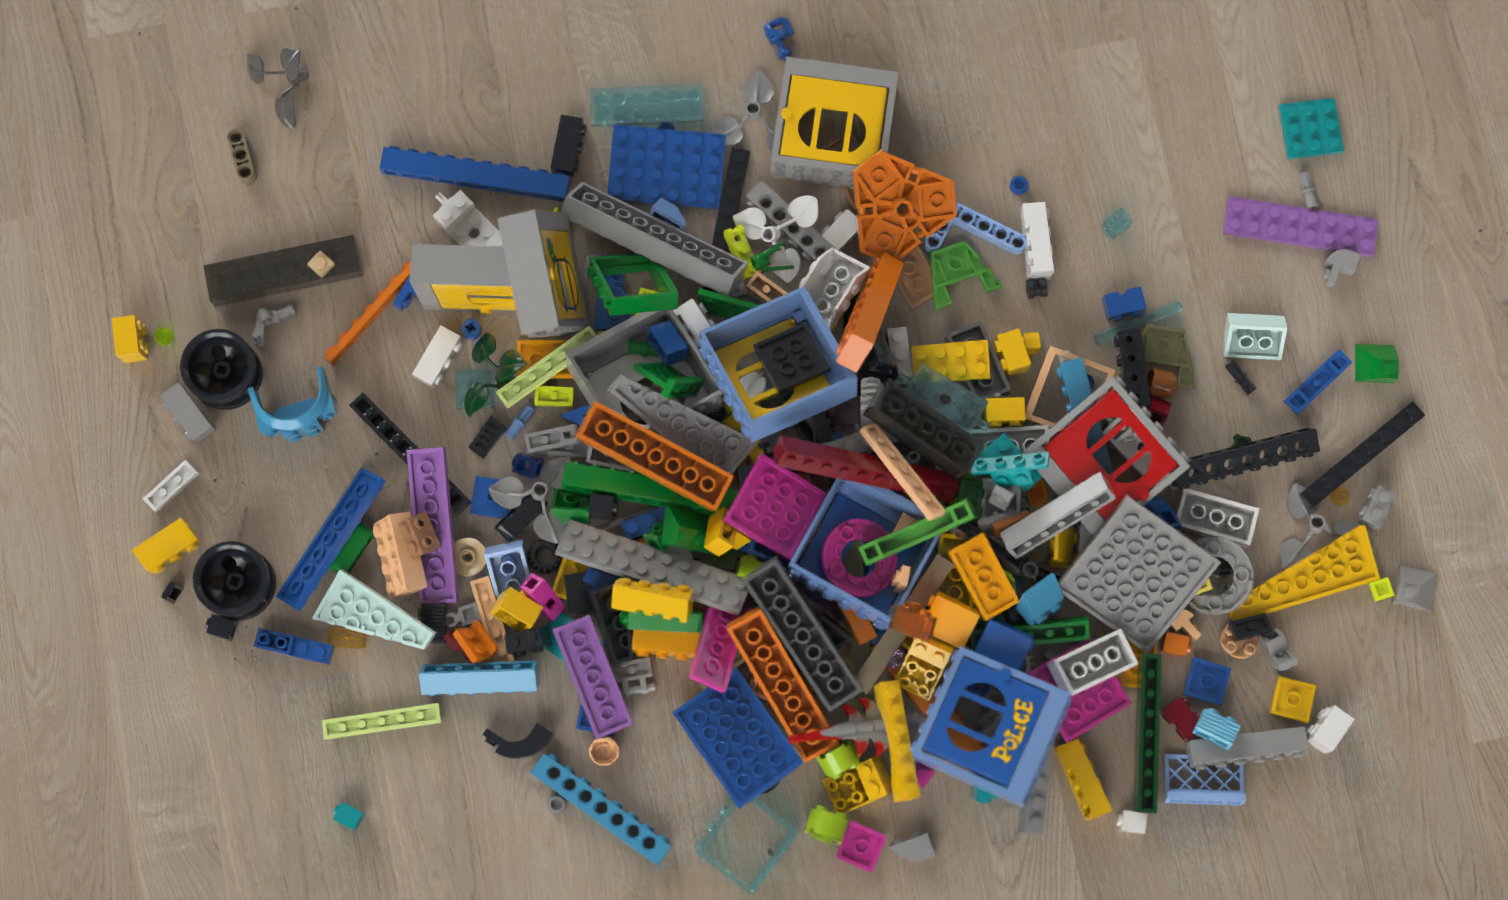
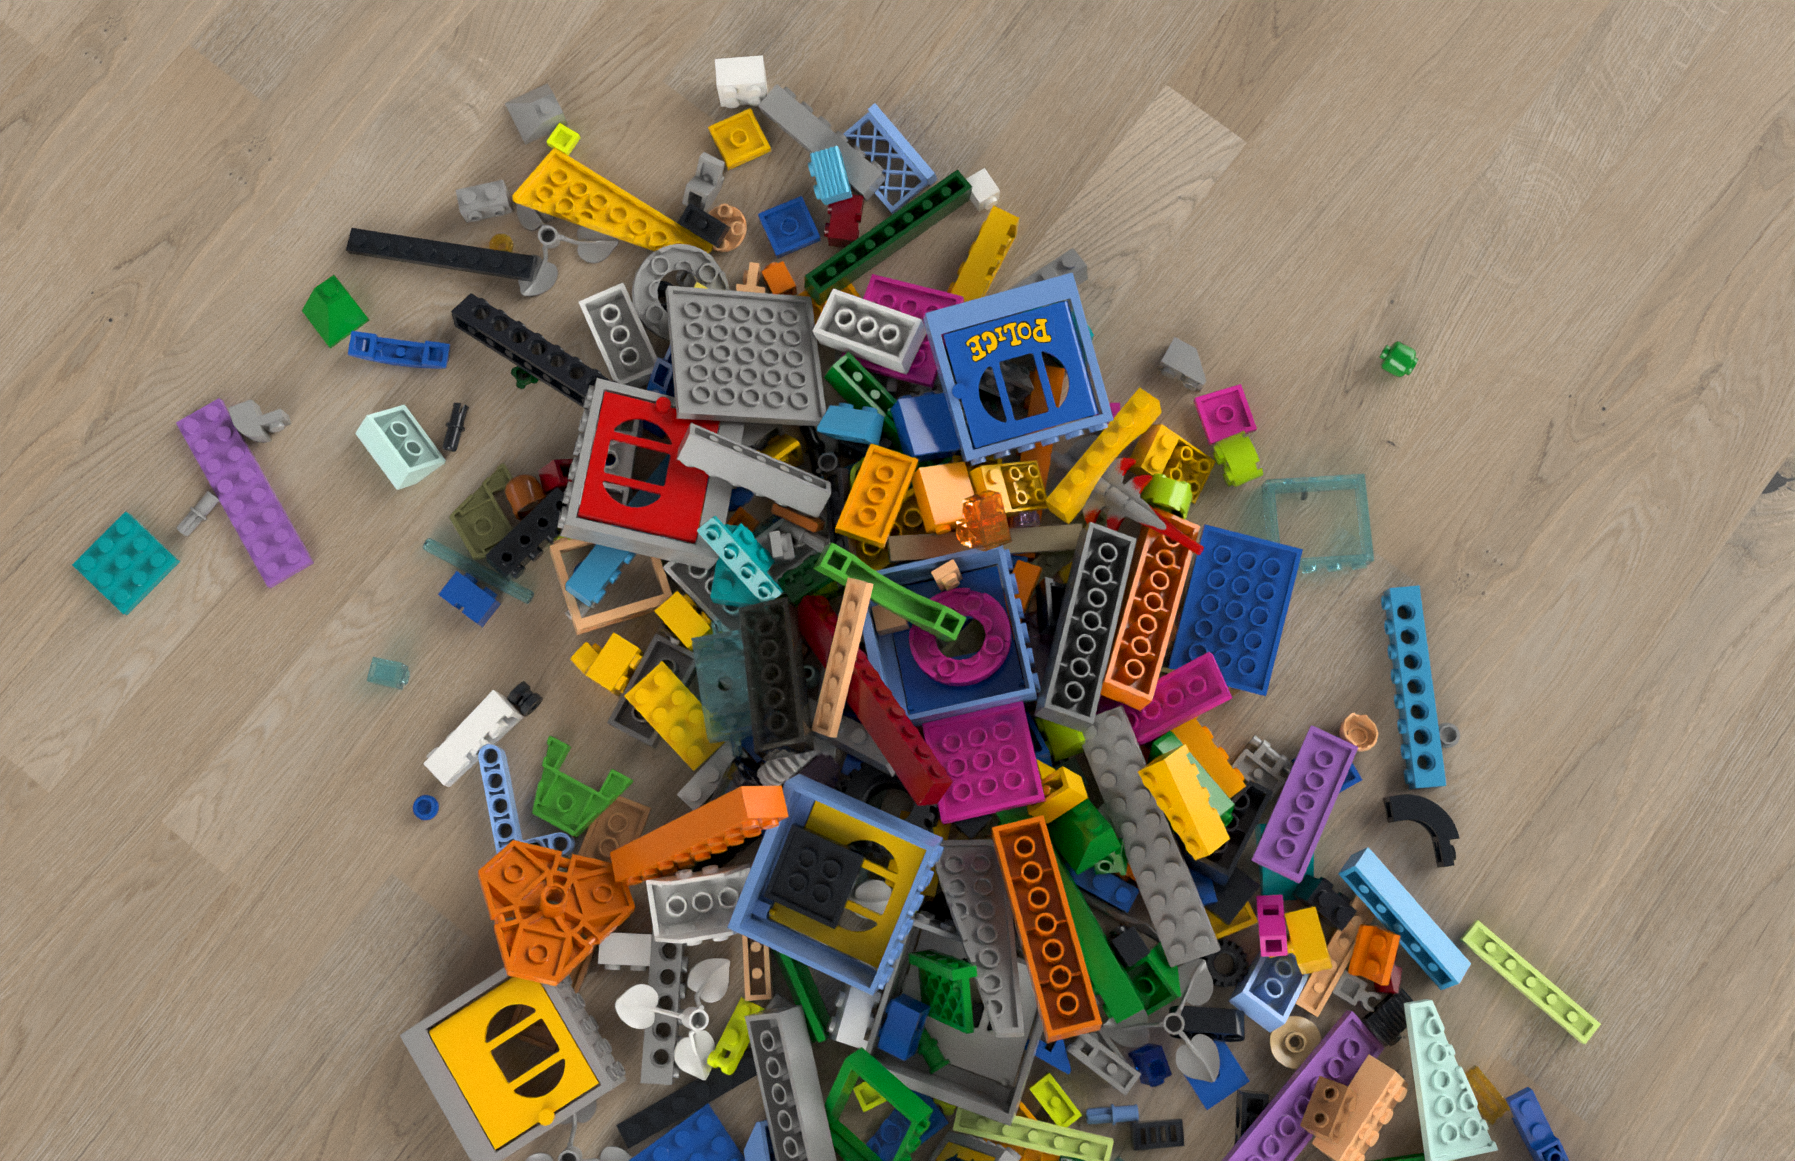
camera: 130 degrees left, 0 degrees up
(348, 816) = (1647, 931): teal brick -> none
(762, 260) = (730, 1005): green plant -> none

